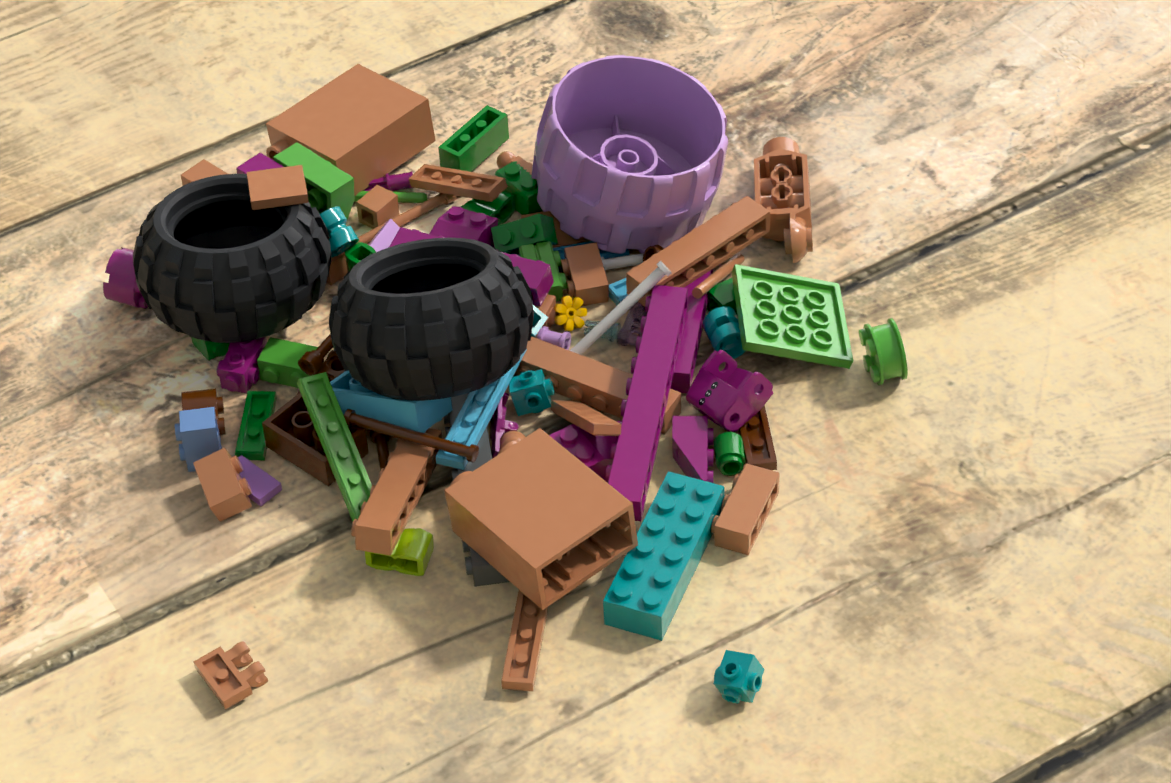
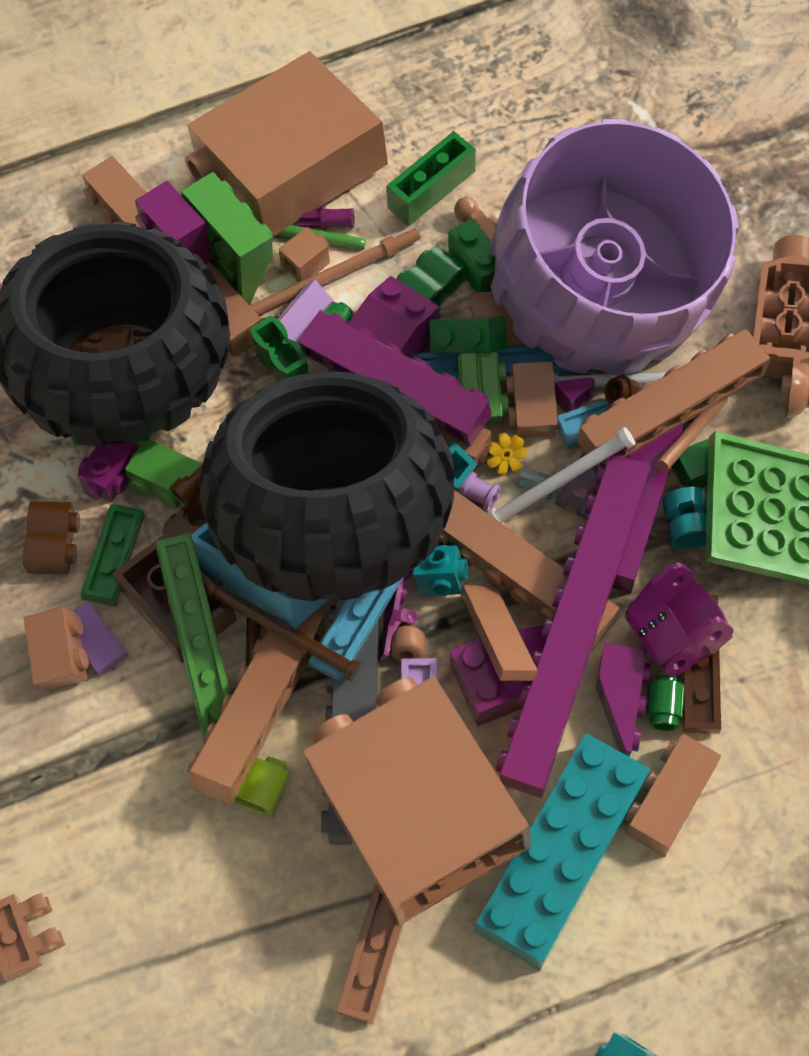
camera: 10 degrees right, 20 degrees up
(198, 435) = (38, 578): medium blue brick -> none
(277, 187) = (168, 261): nougat tile -> none
(340, 236) = (242, 304): teal wheel -> none
(458, 182) = (402, 241): nougat plate -> none
(617, 266) = (573, 393): none -> magenta slope

